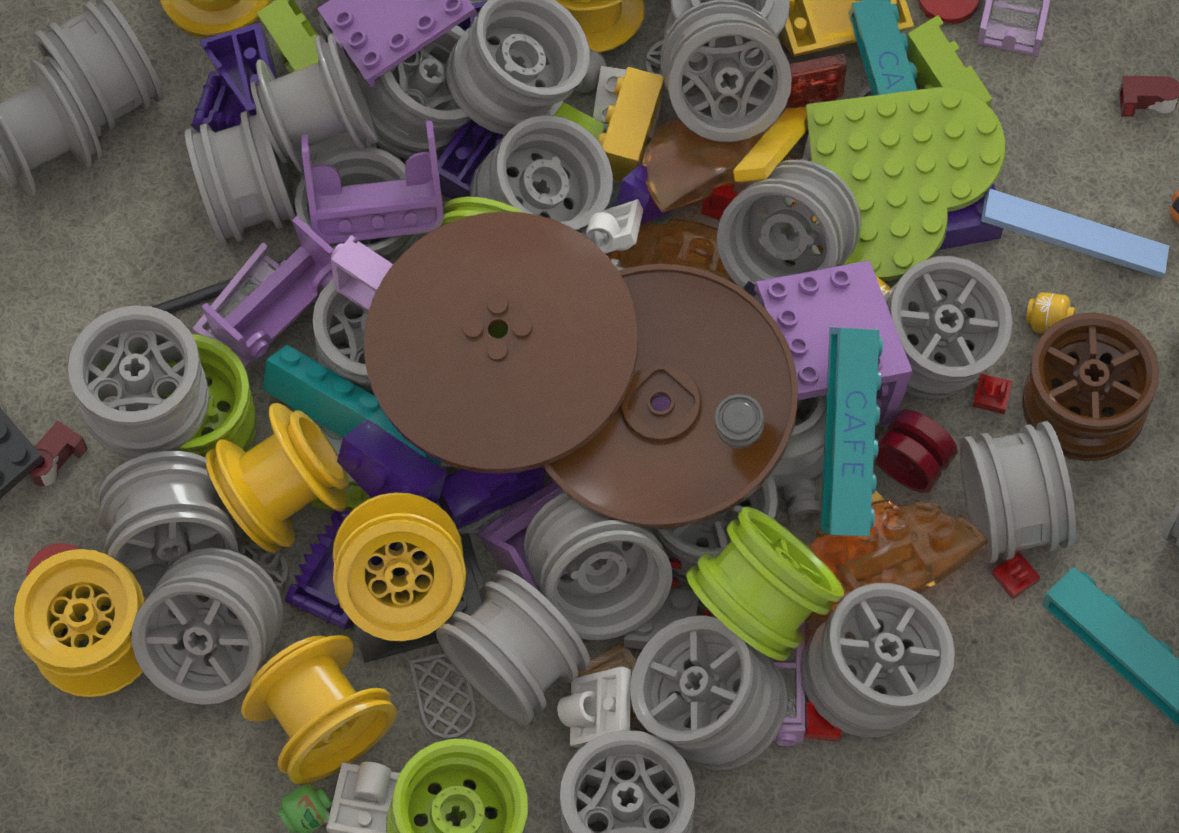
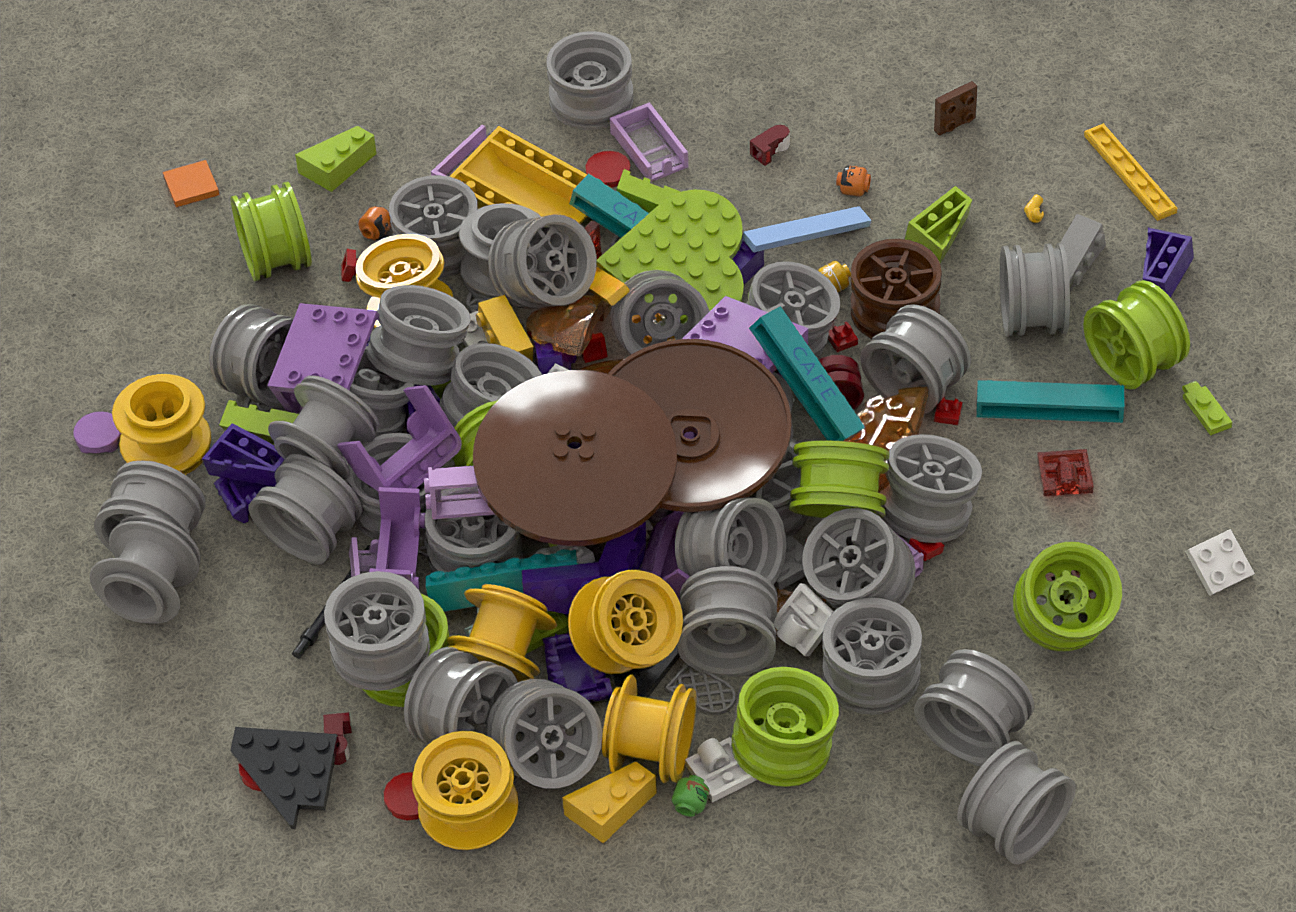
camera: 40 degrees left, 15 degrees down
(225, 747) = (610, 801): none -> yellow wedge
(739, 421) = (752, 400): dark grey wheel -> none
(1064, 754) = (1065, 472): none -> clear red plate

